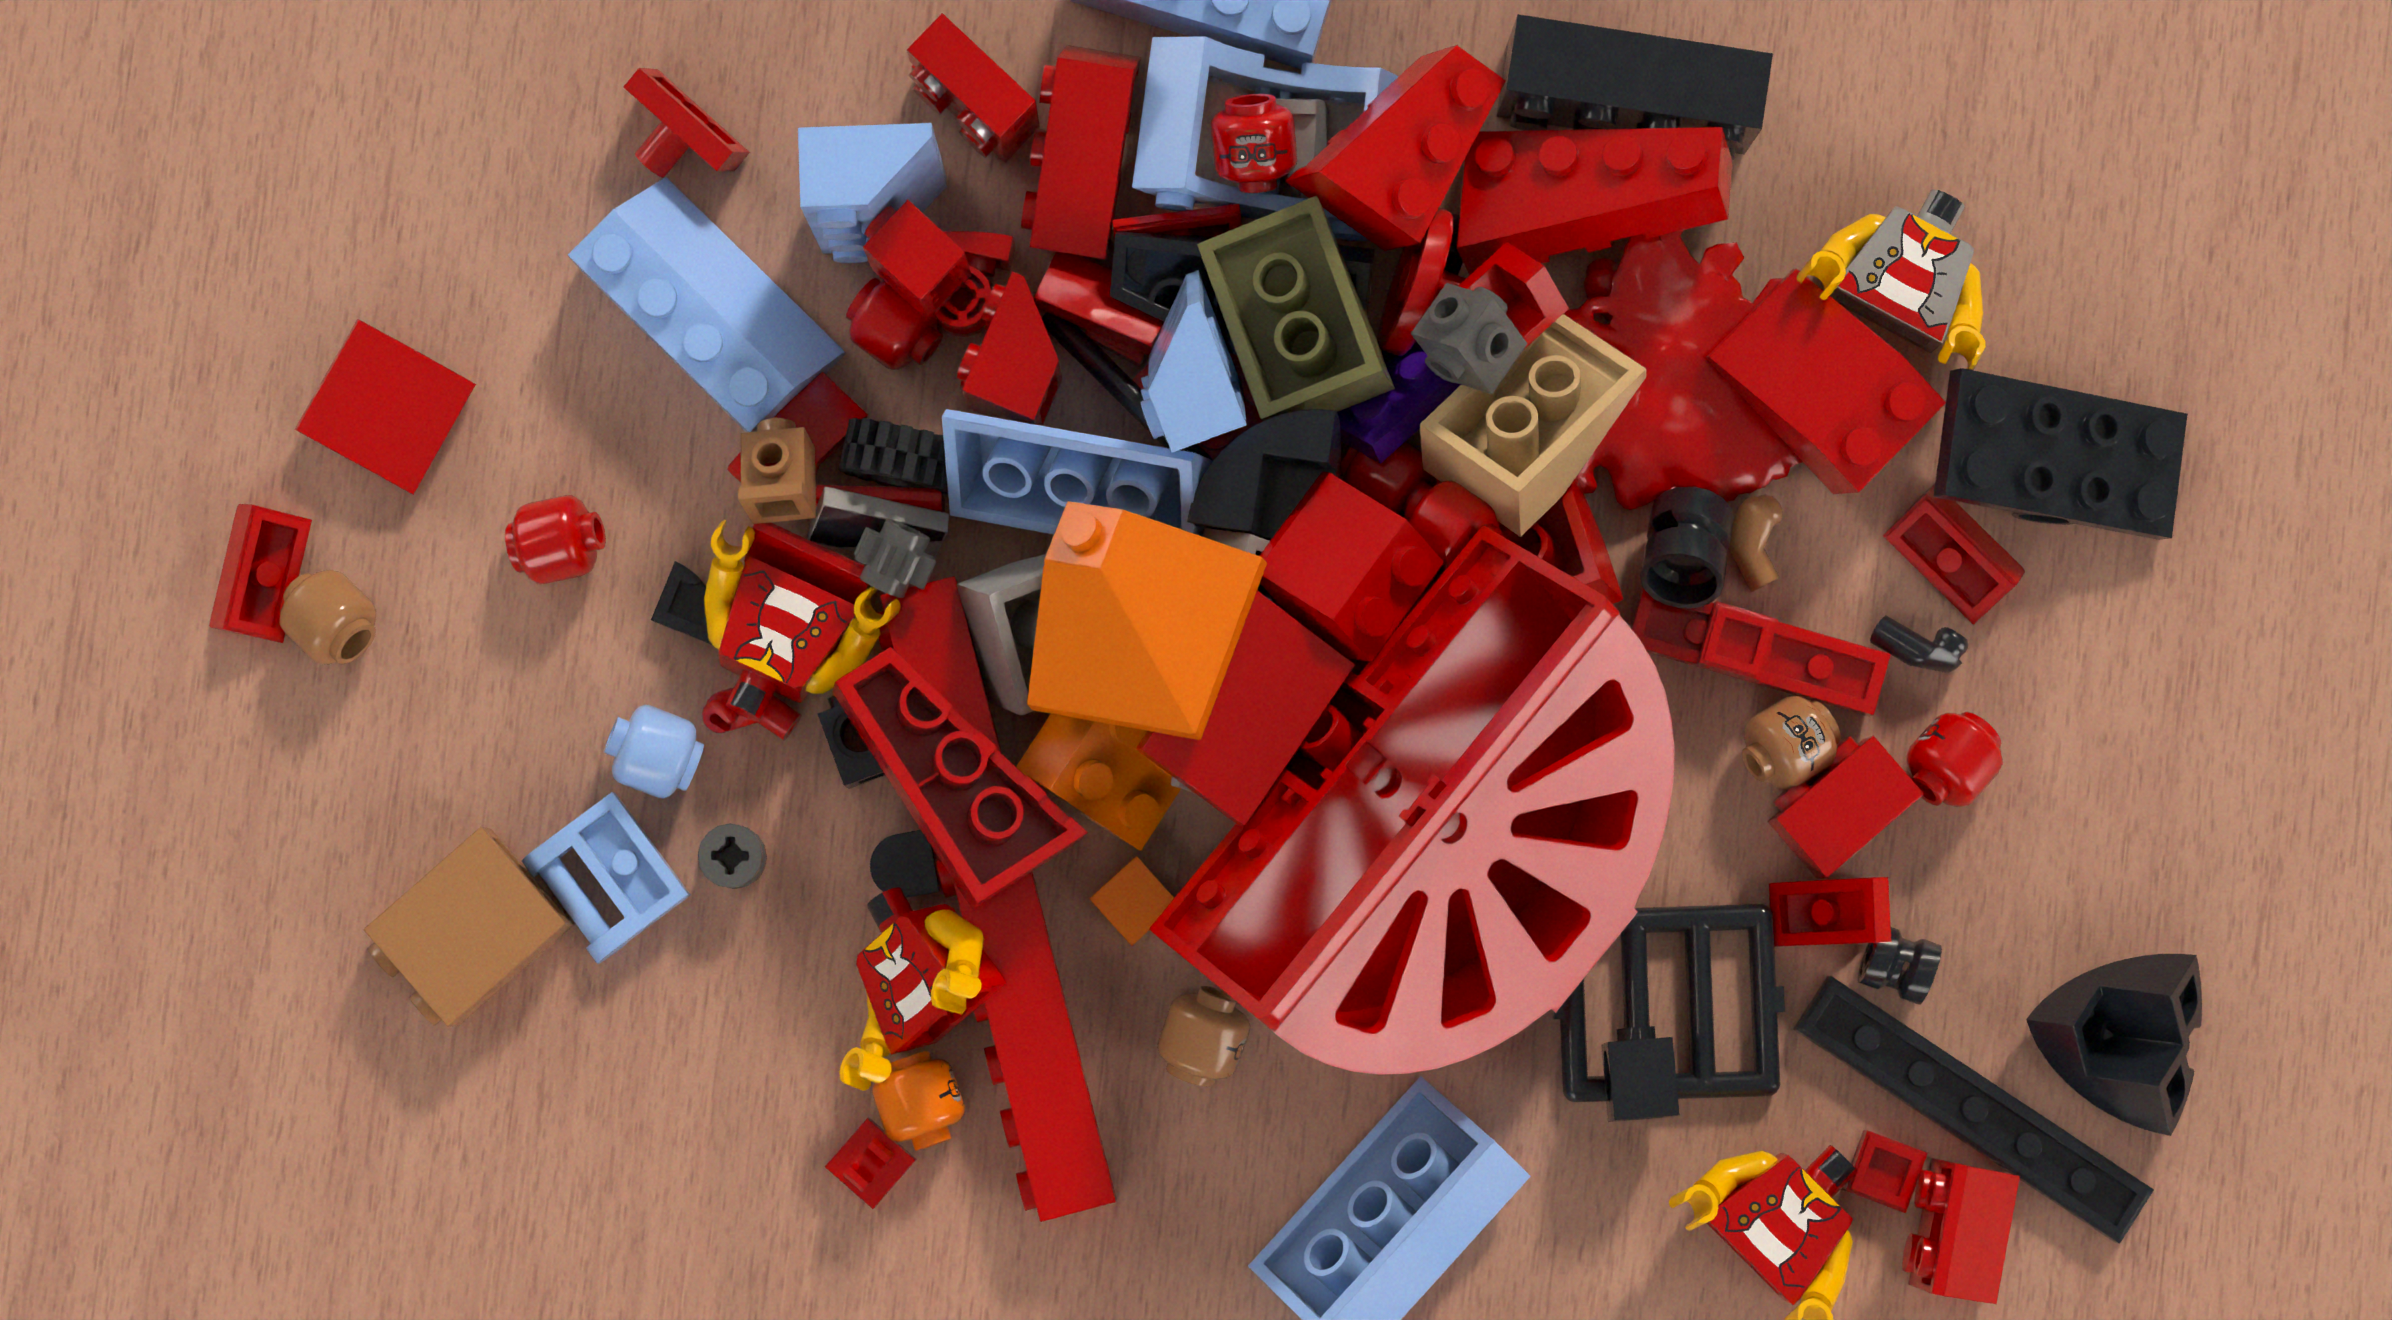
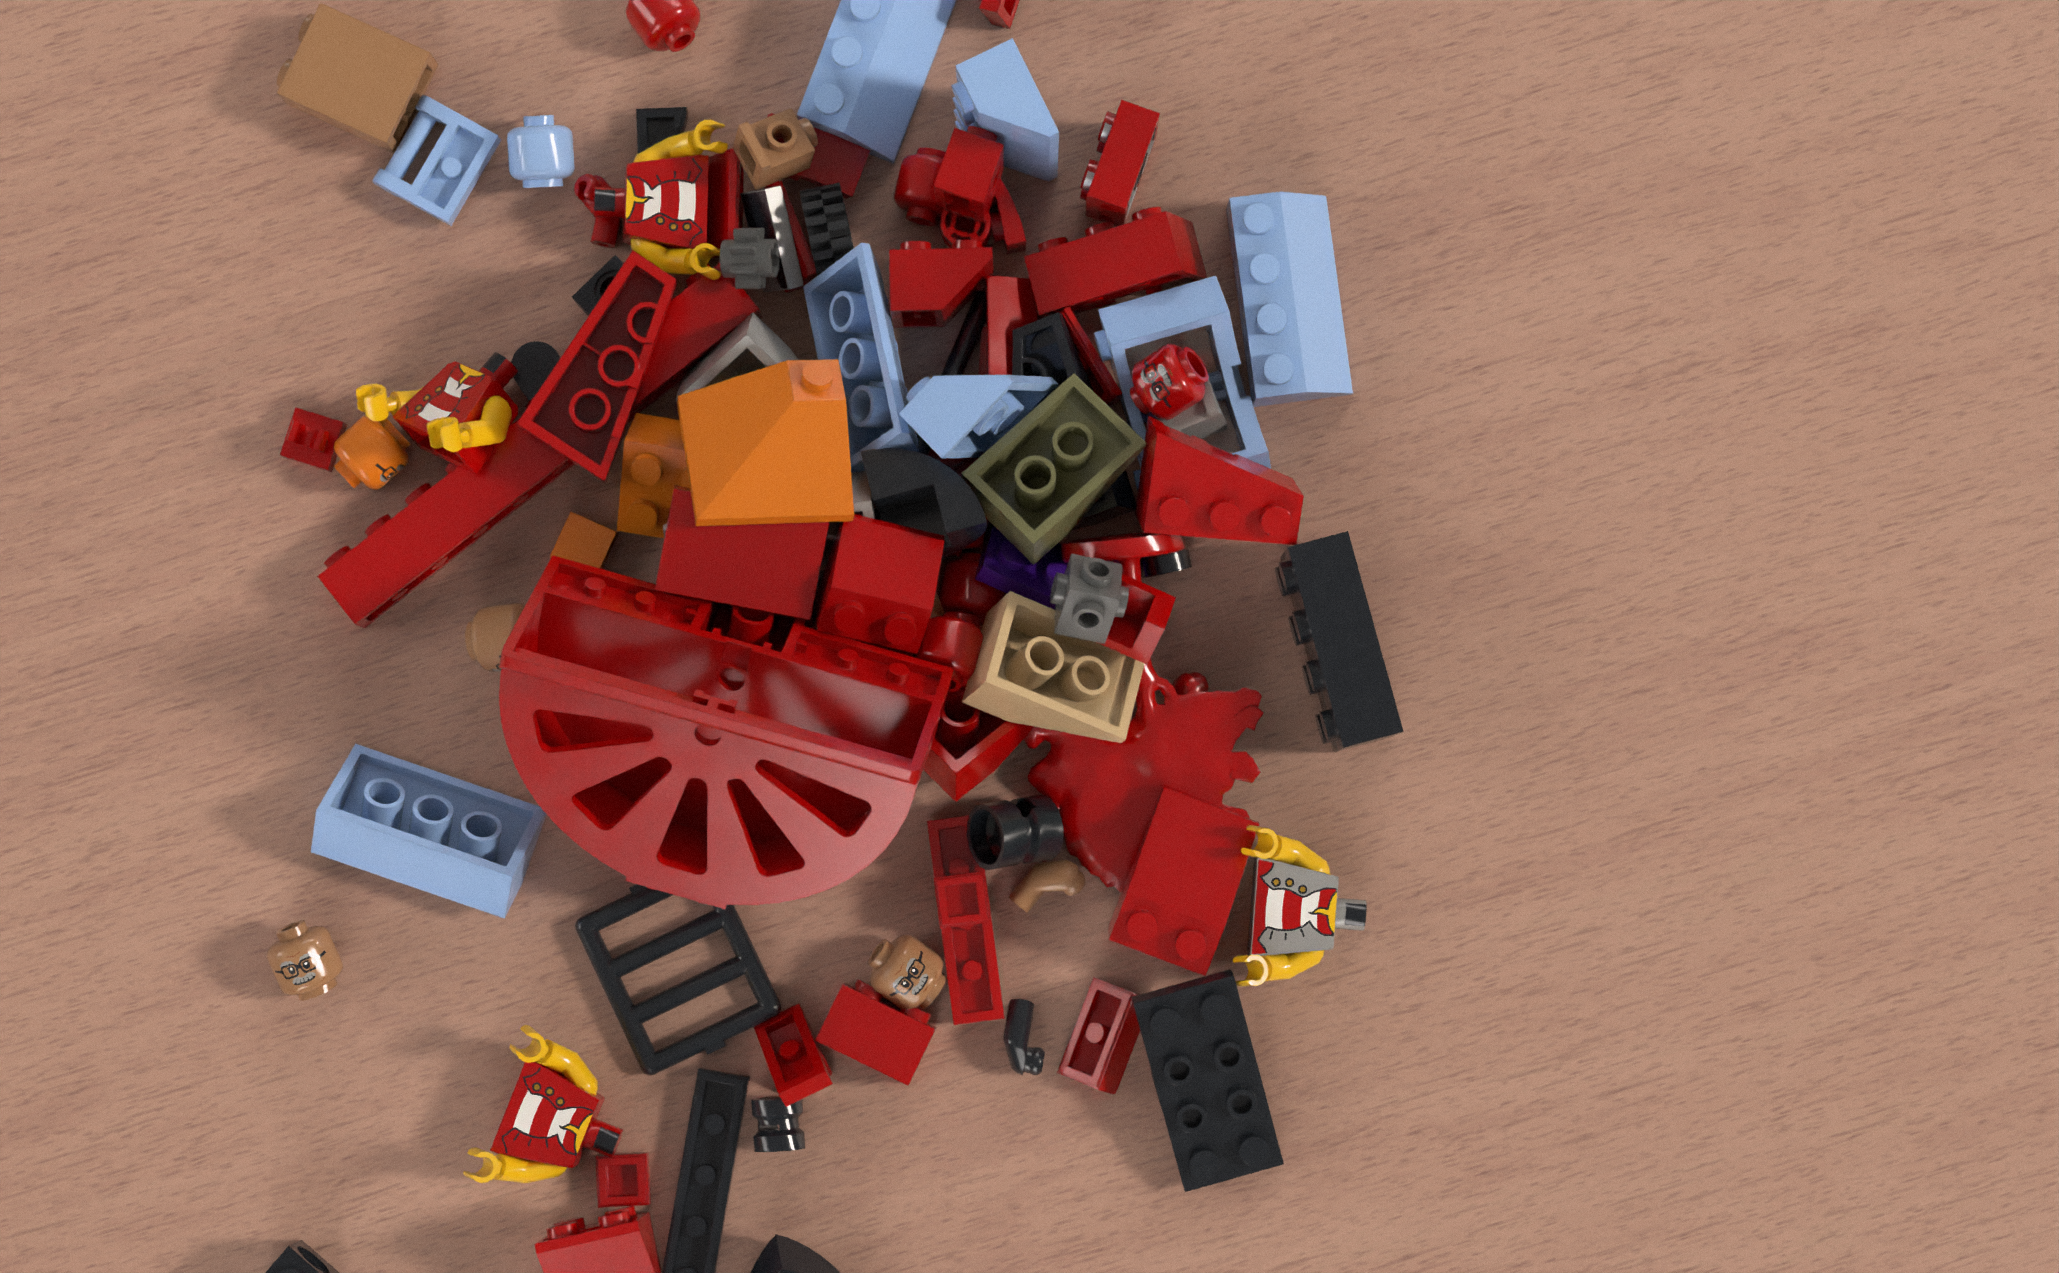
camera: 70 degrees right, 0 degrees up
(743, 857) = (494, 252): dark grey wheel -> none
(1588, 188) = (1245, 641): red wedge -> none
(1640, 1075) = (609, 965): black brick -> none
(1955, 759) = (947, 1099): red head -> none

